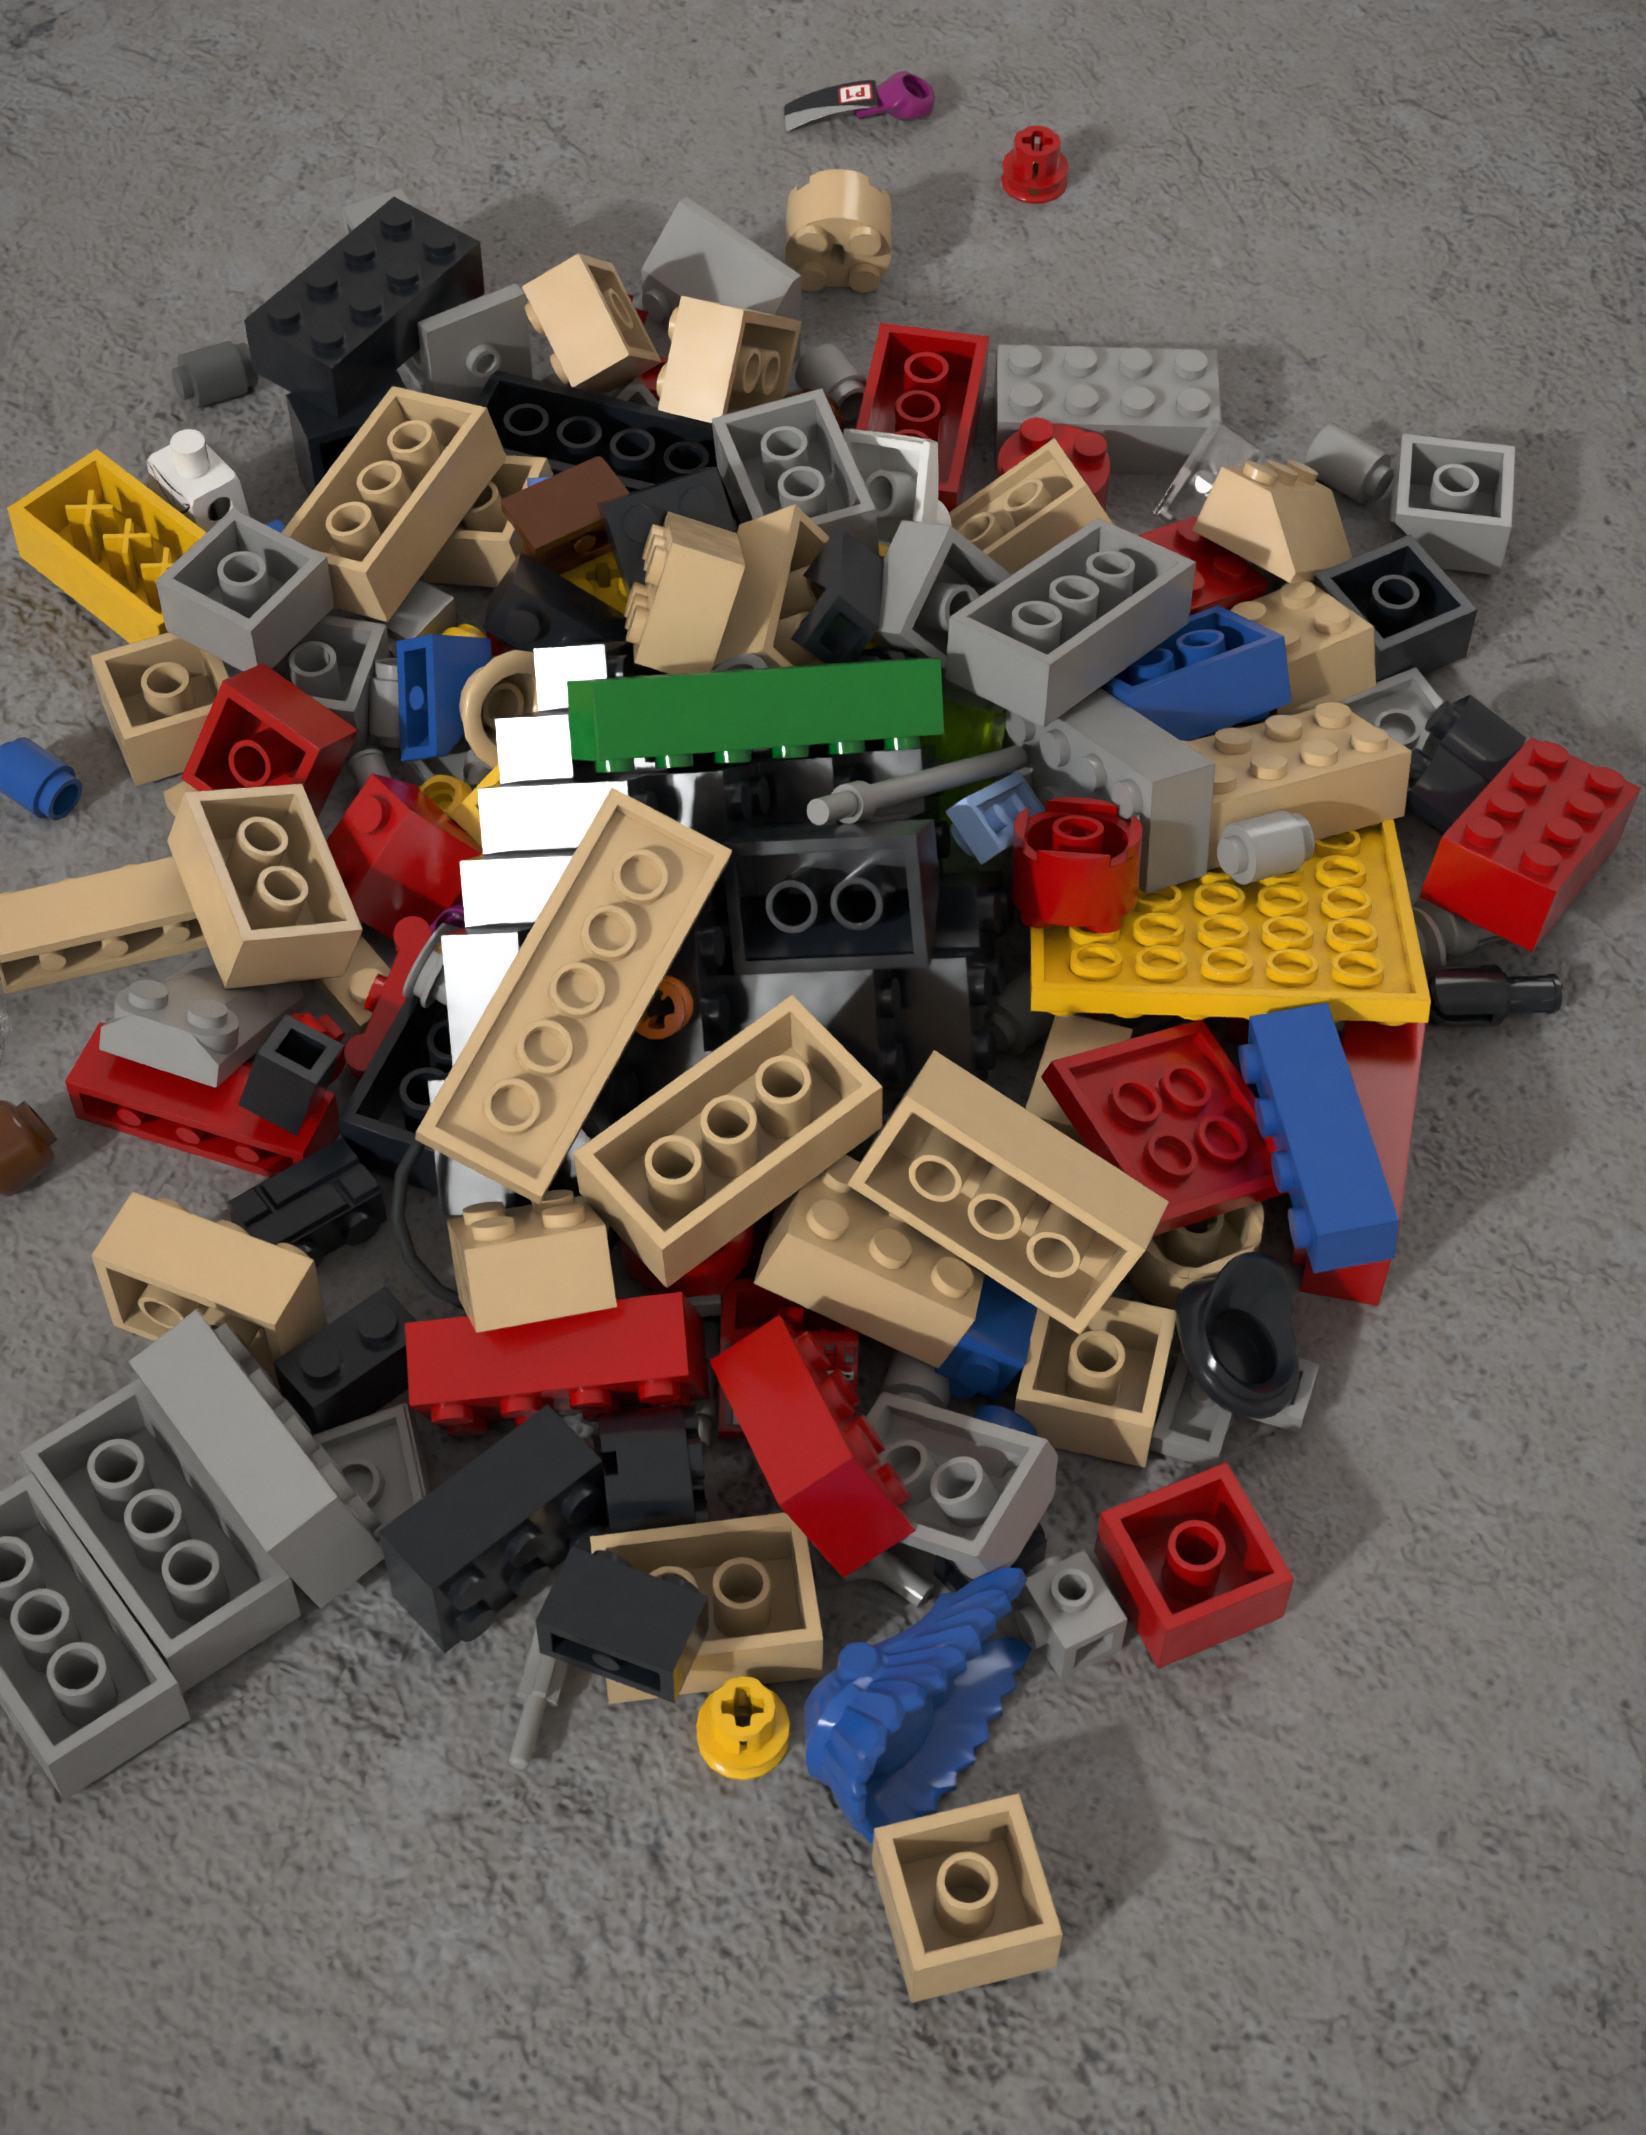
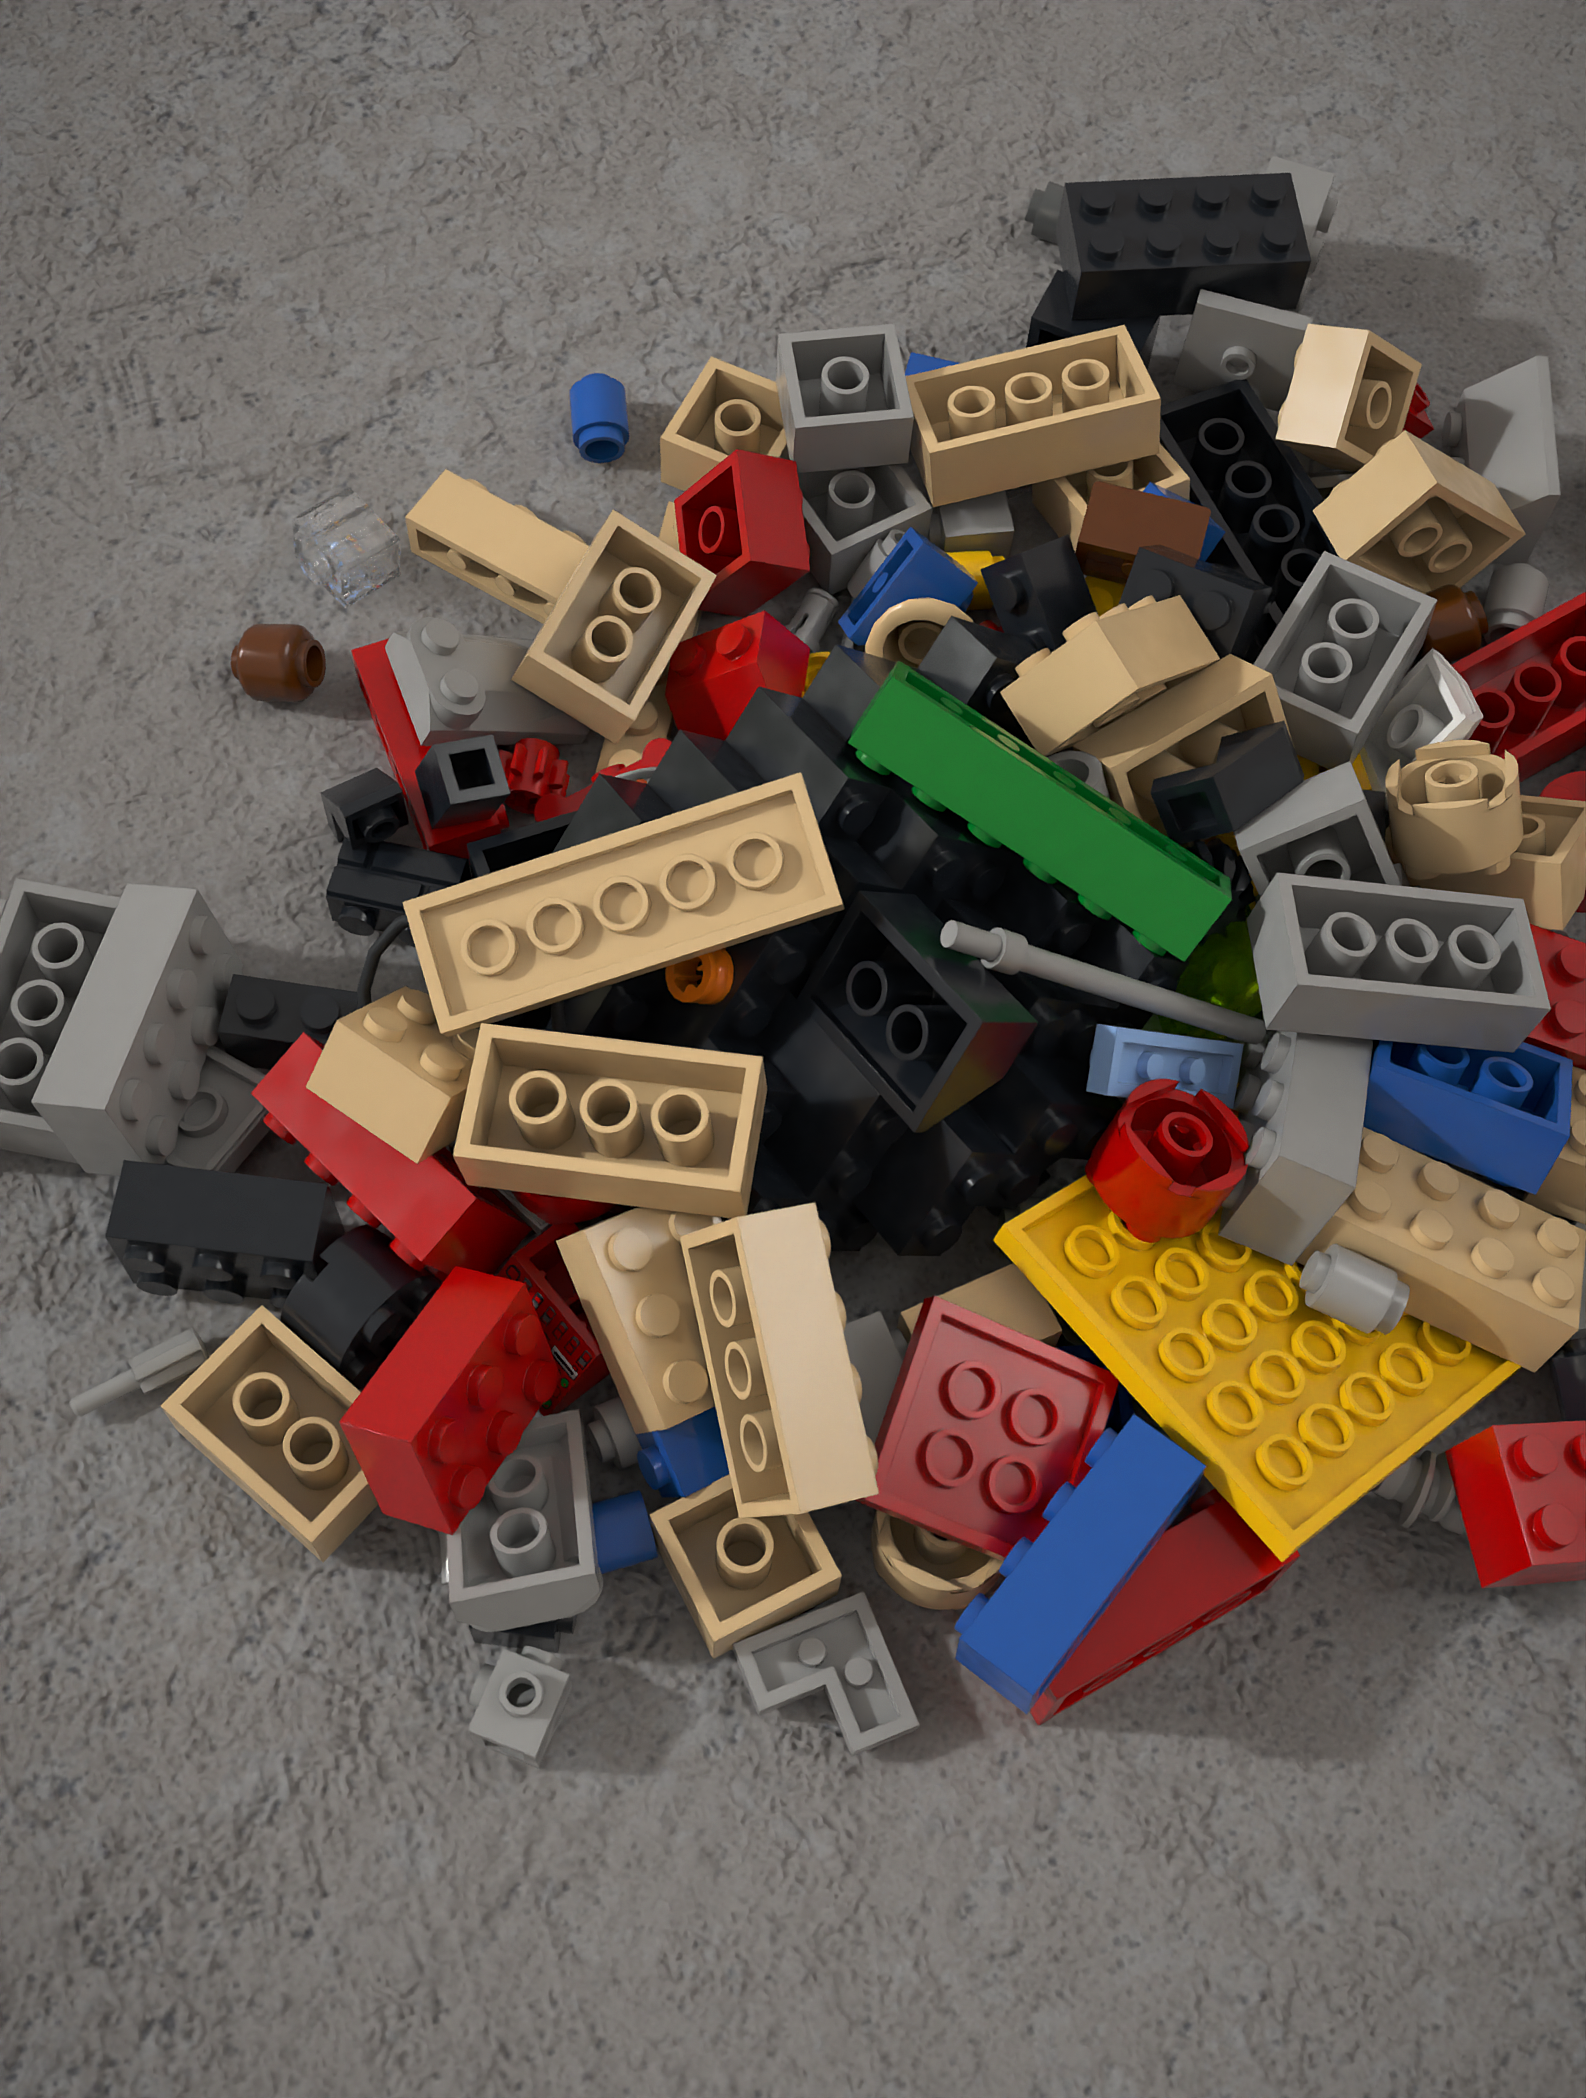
camera: 45 degrees right, 10 degrees up
(104, 542) = (838, 265): yellow brick -> none
(166, 1263) = (264, 879): tan brick -> none
(195, 480) = (939, 286): white torso -> none
(223, 1167) = (365, 808): none -> black slope
(623, 1622) = (189, 1390): black brick -> none
(721, 1738) = (241, 1563): yellow piece -> none
(914, 1707) = (309, 1659): blue piece -> none
(966, 1897) = (195, 1824): tan brick -> none
(987, 500) = (1455, 810): none -> tan brick
(1193, 1565) = (633, 1768): red brick -> none
(1241, 1336) = (861, 1646): black piece -> none
(1487, 995) = (1420, 1580): black arm -> none

